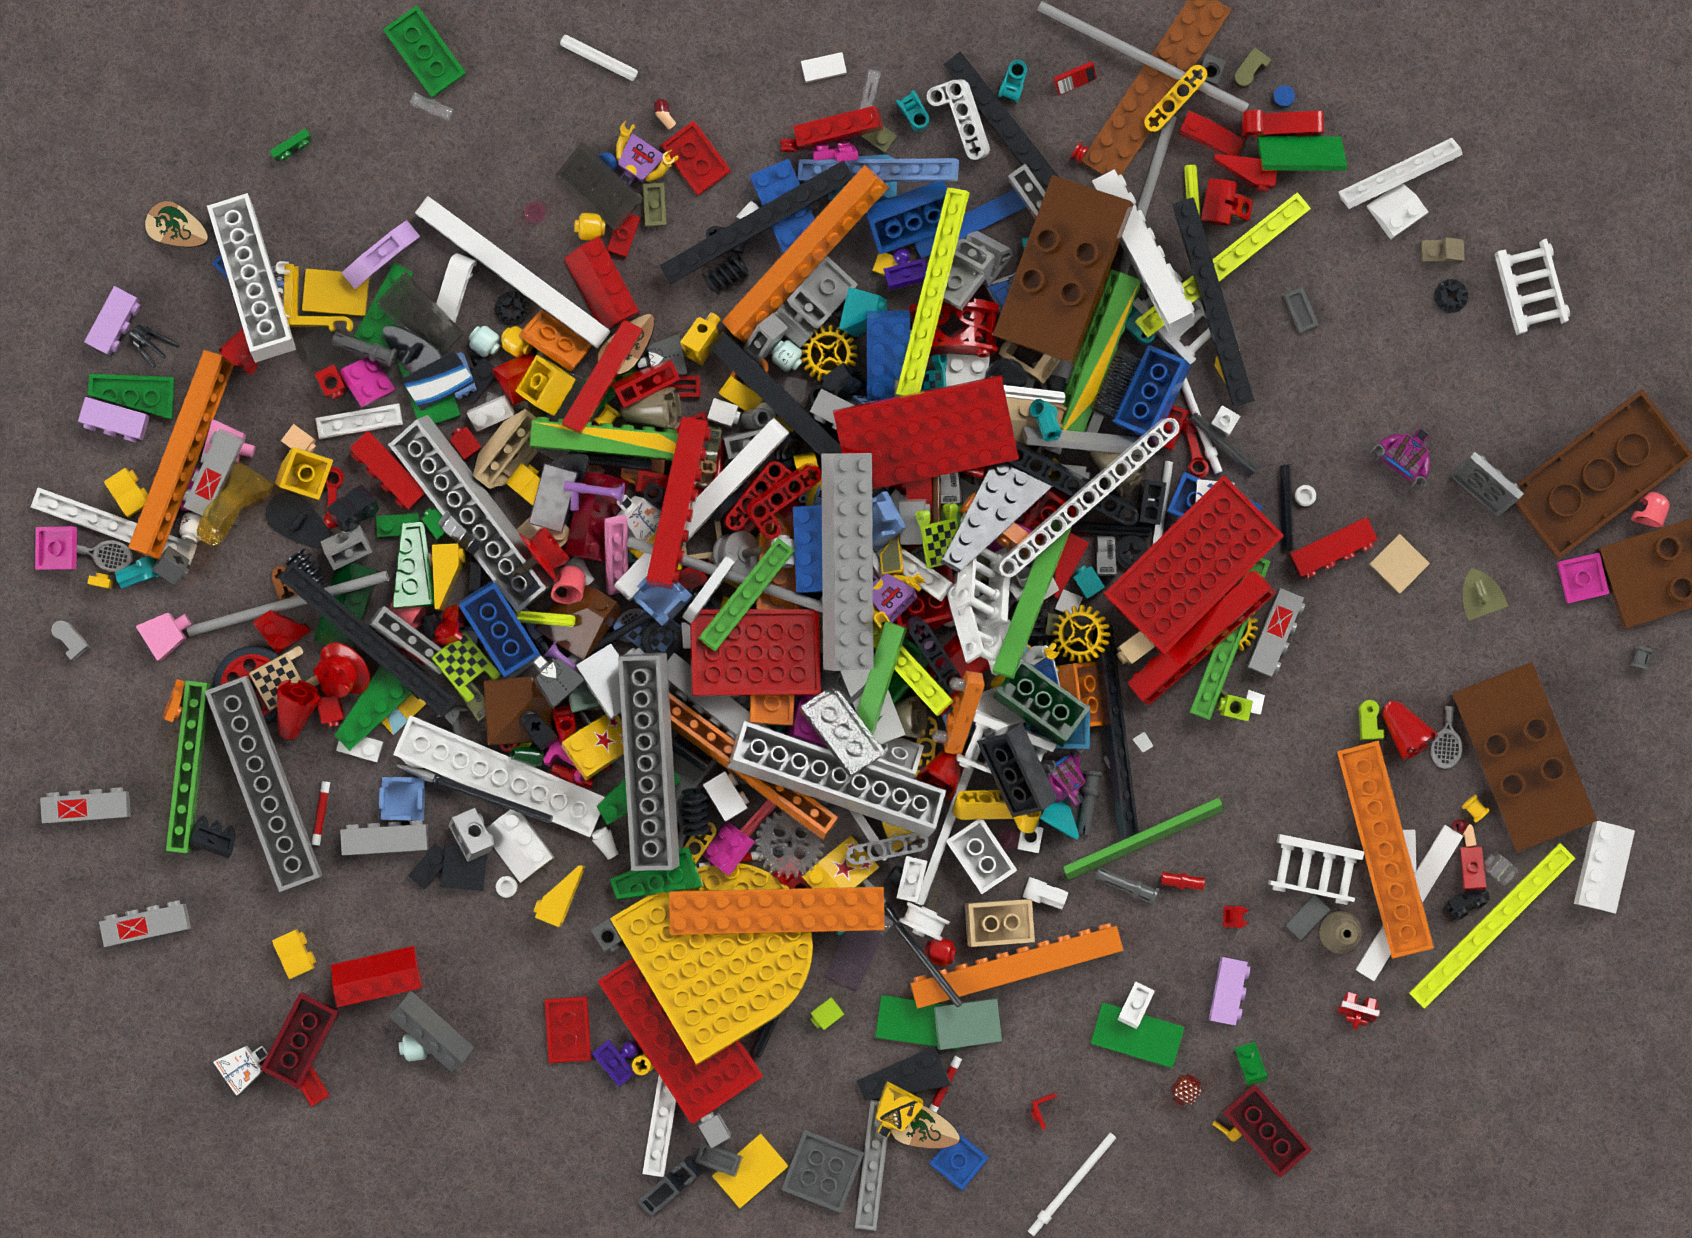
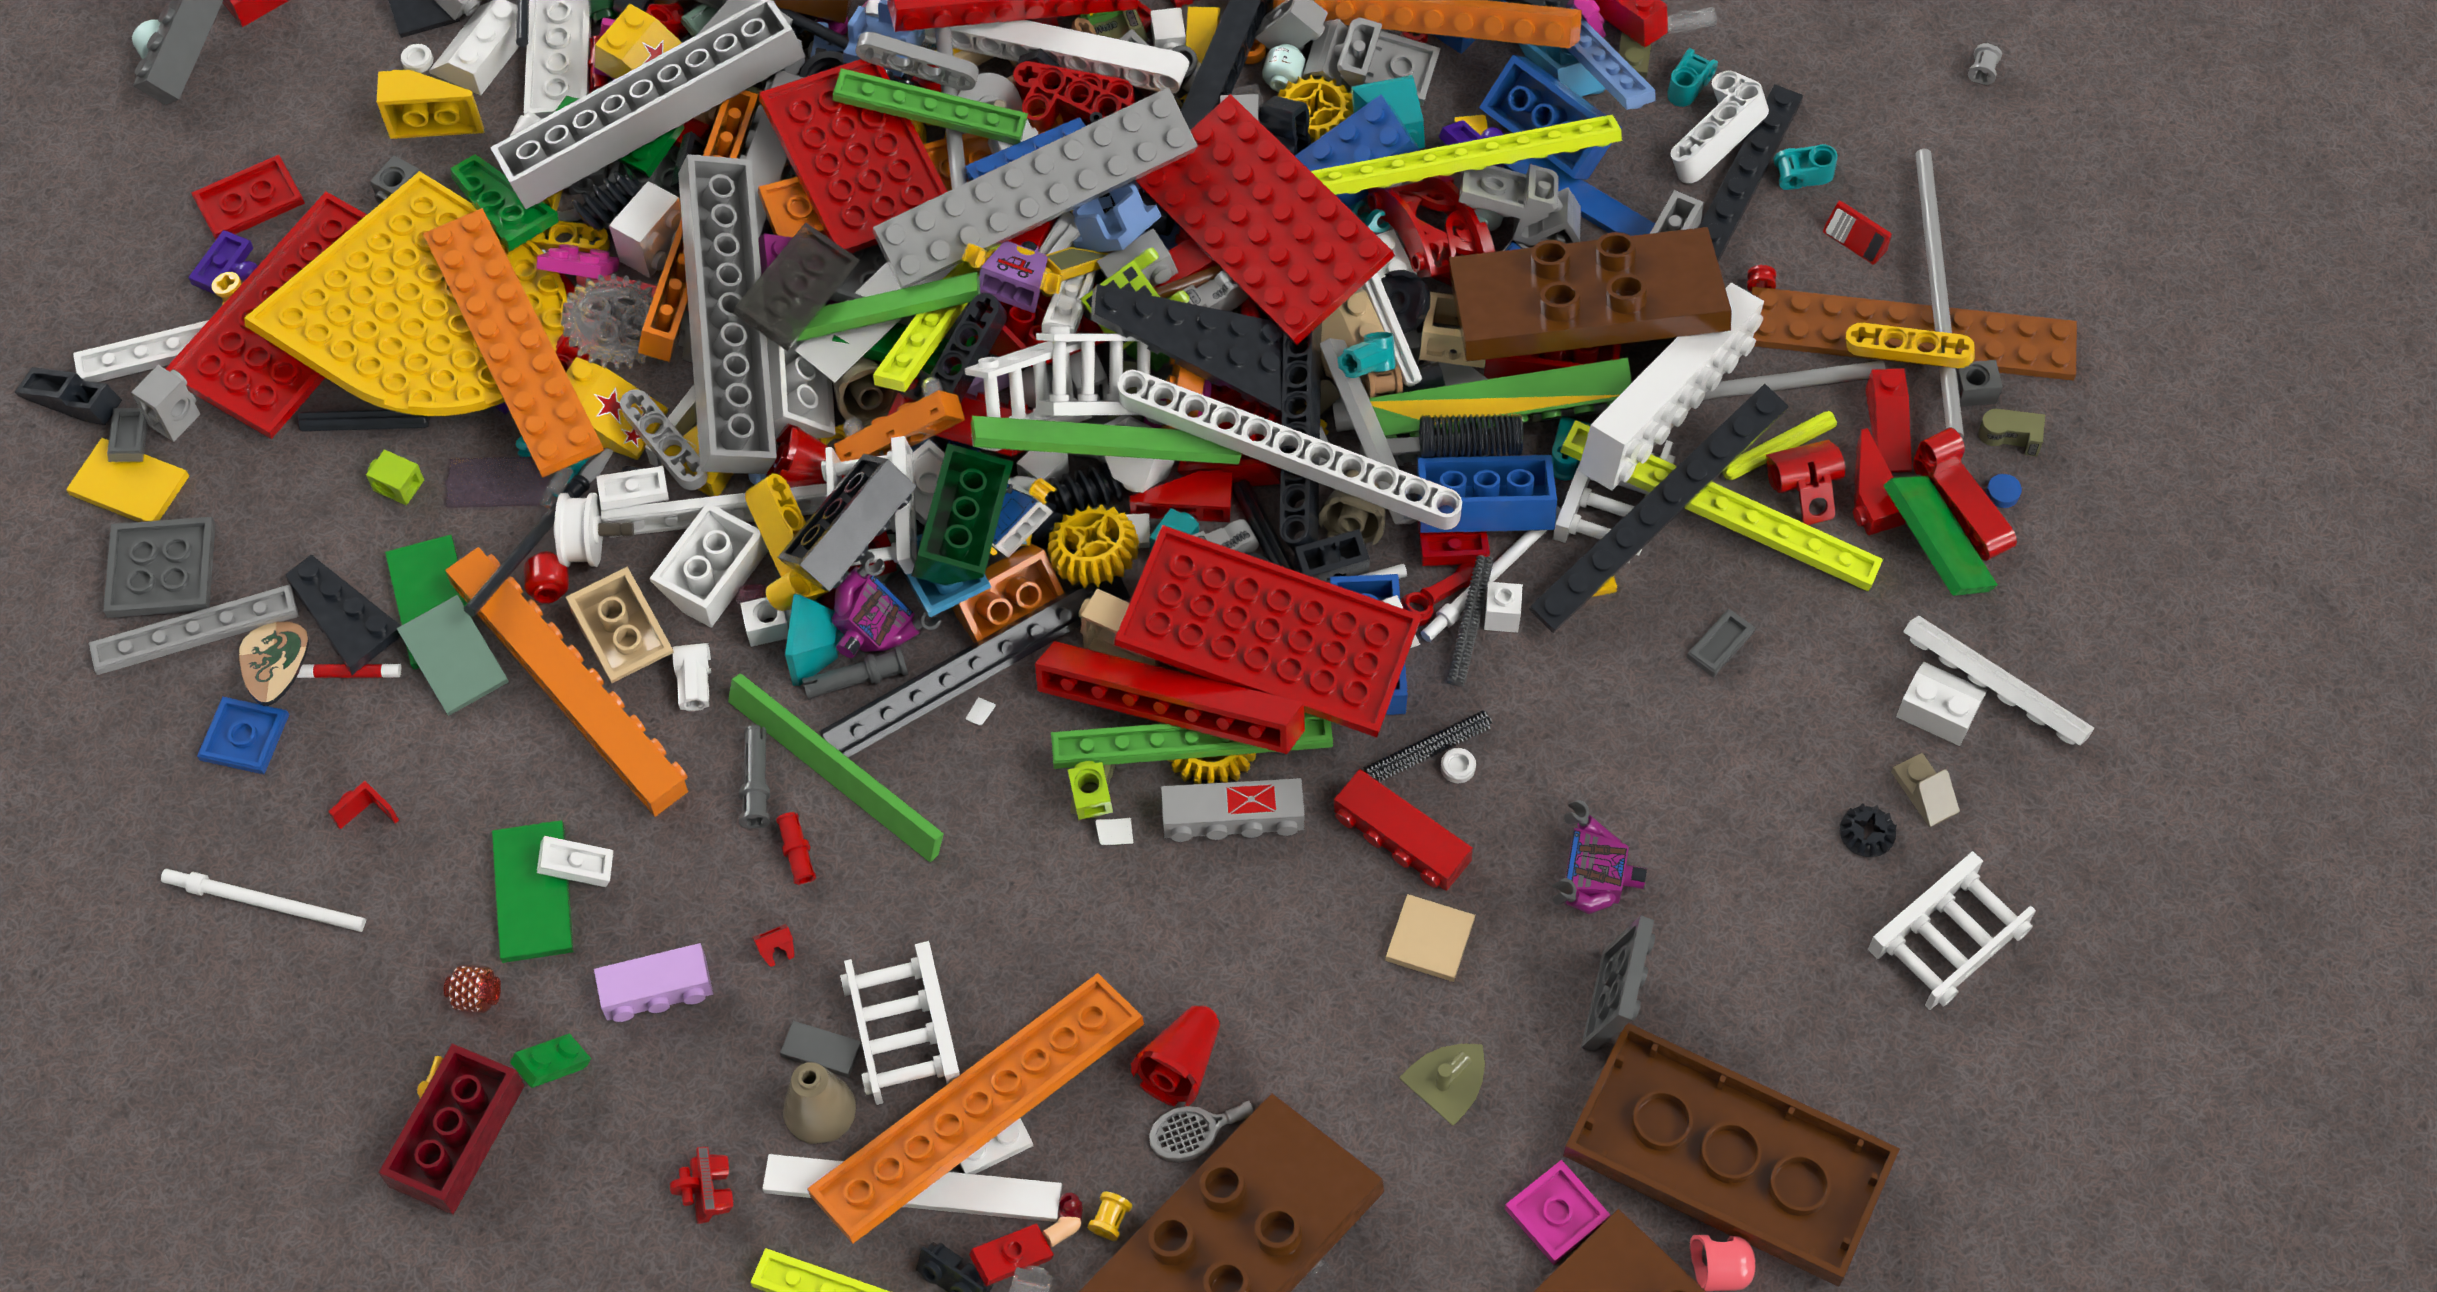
camera: 65 degrees right, 25 degrees down
(896, 1109) = (285, 608): yellow torso -> none
(1368, 721) = (1167, 997): lime leg -> none

